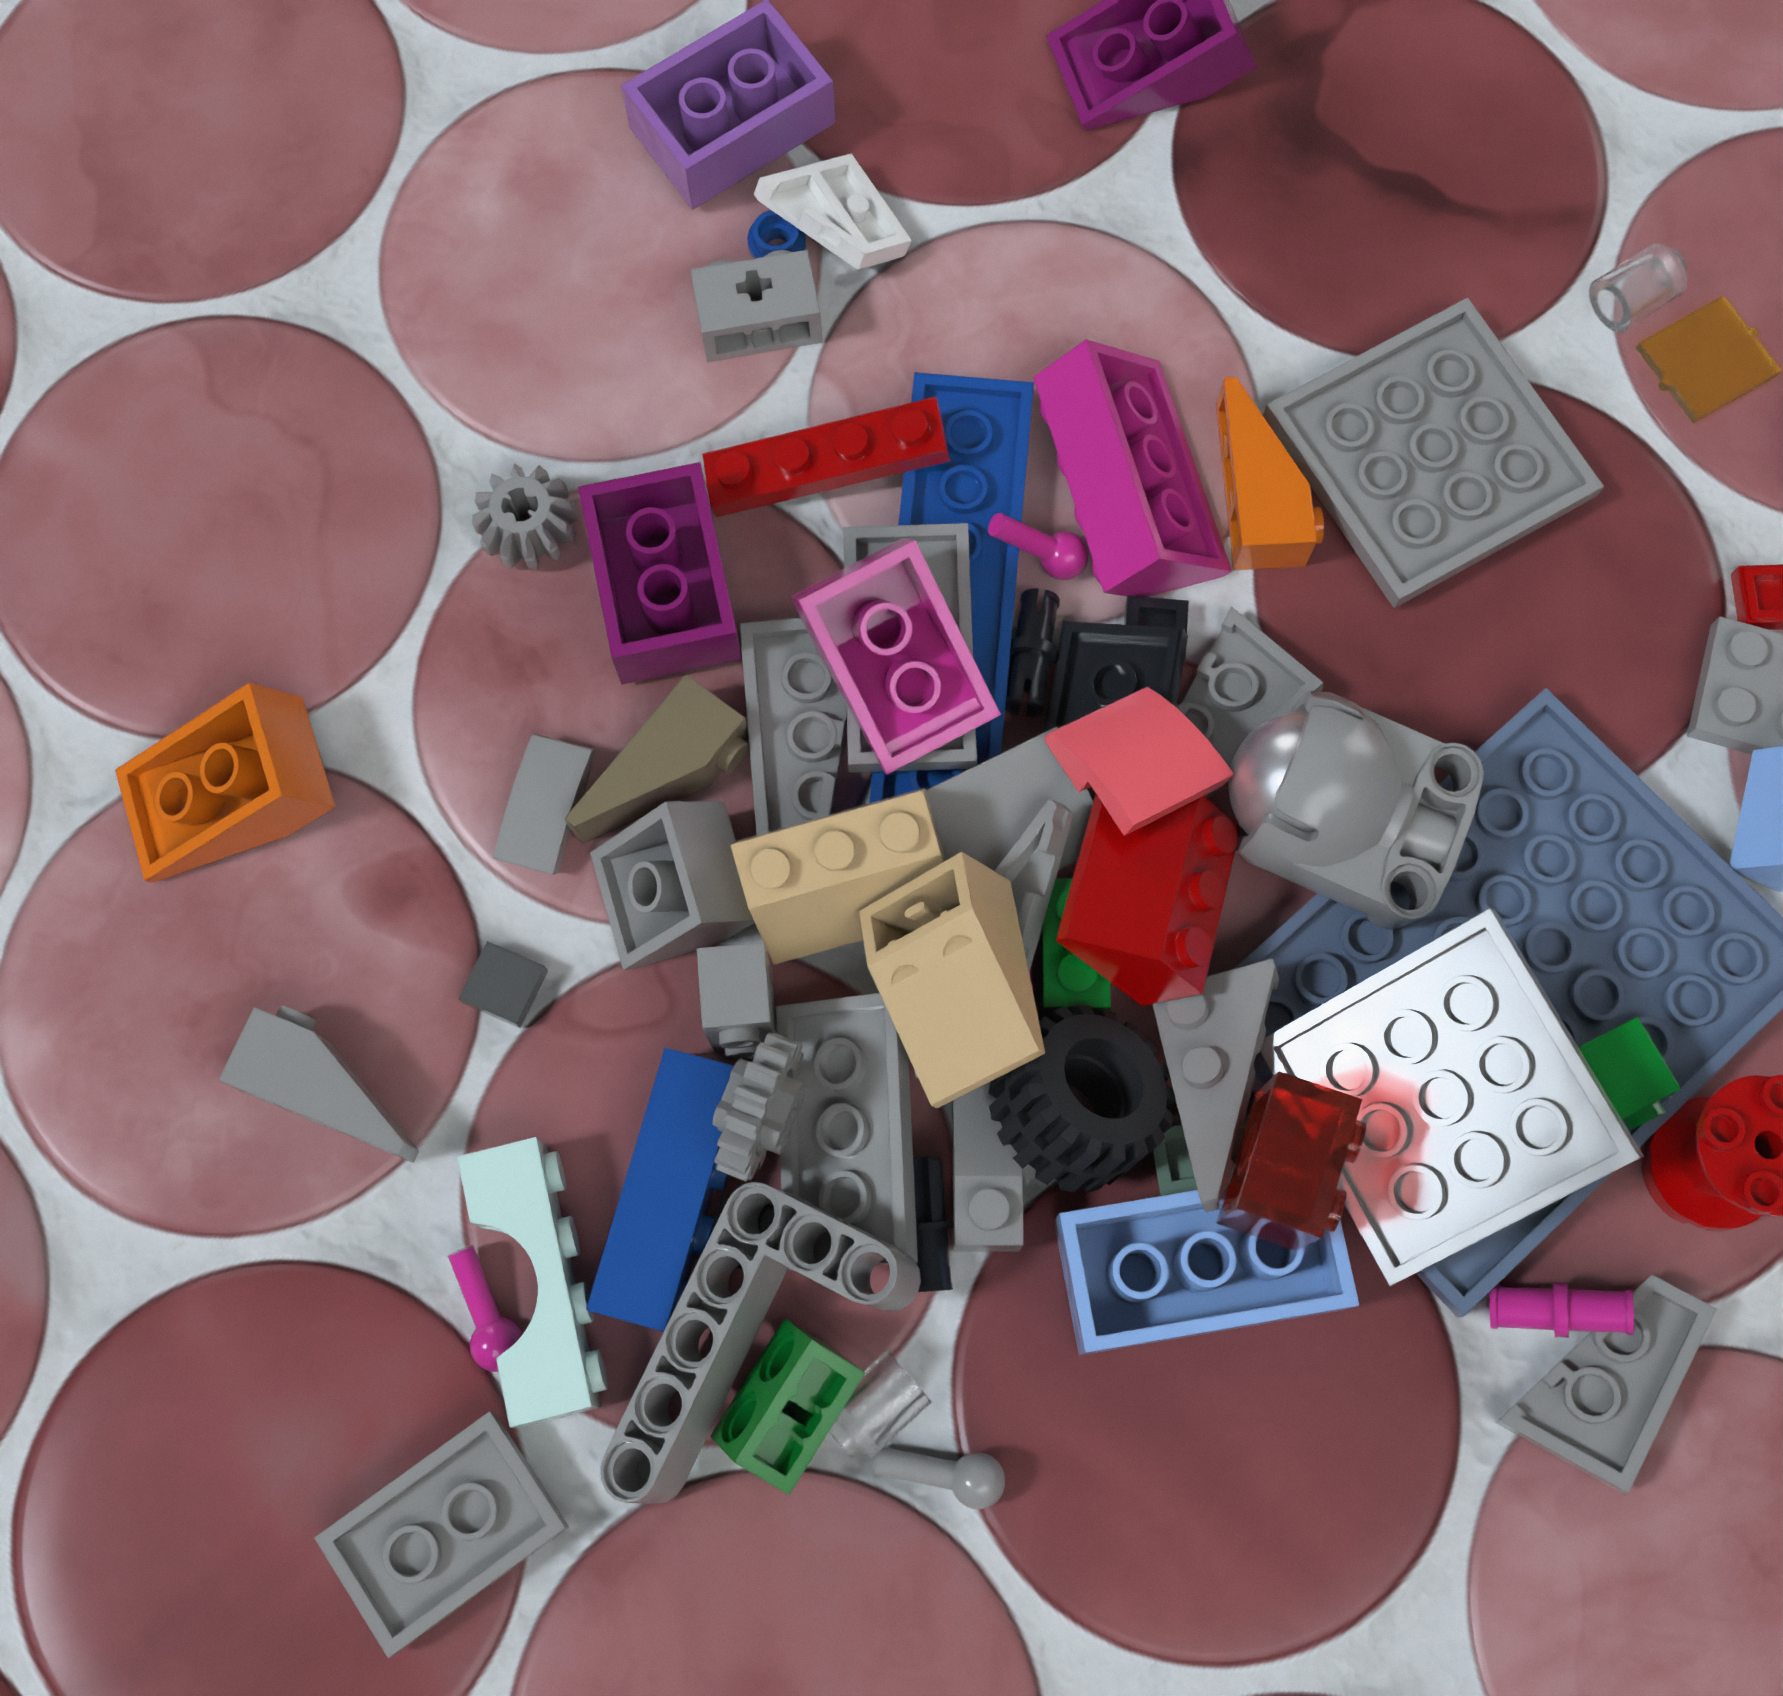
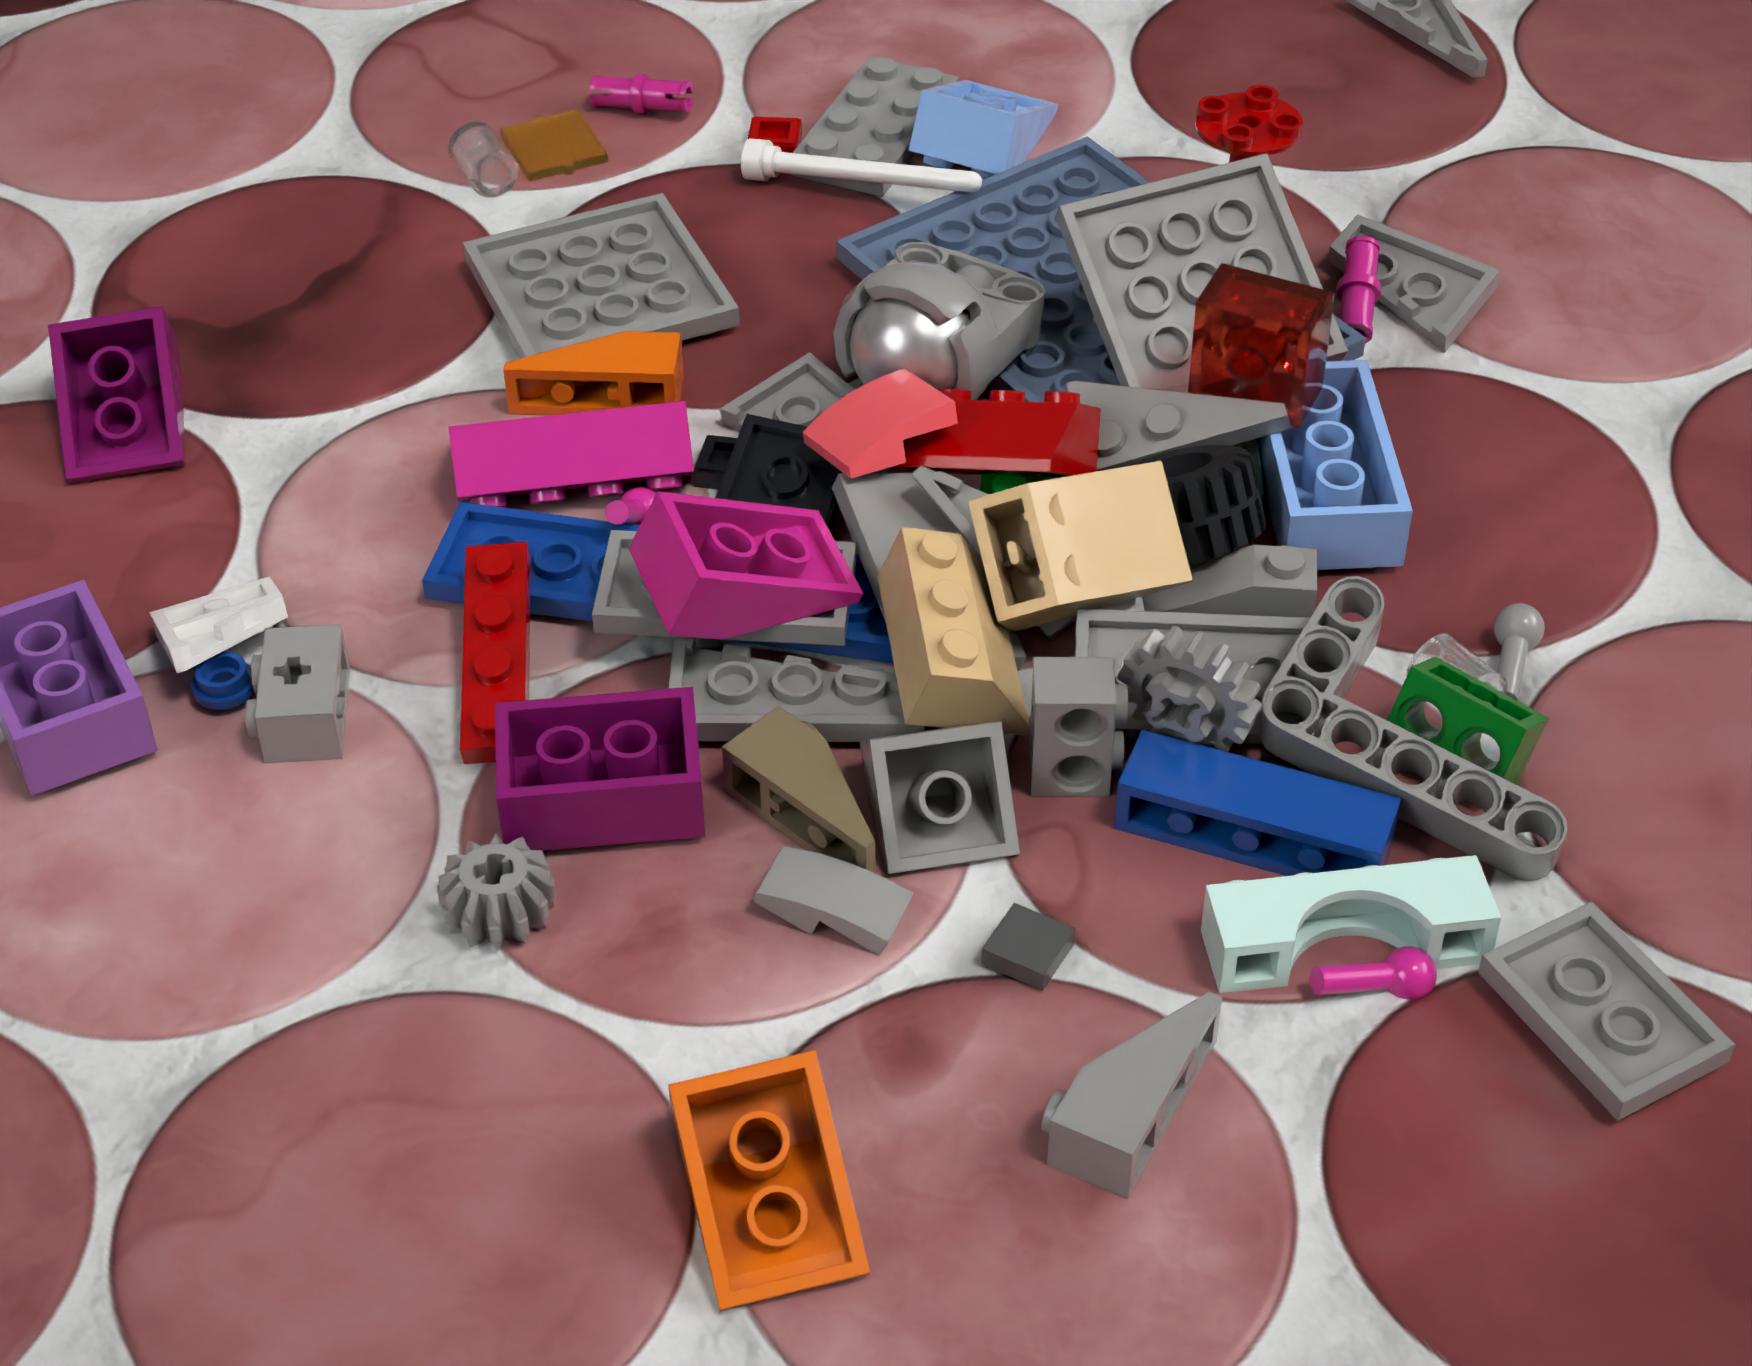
camera: 85 degrees left, 30 degrees down
(1705, 588) = (763, 160): none -> white piece

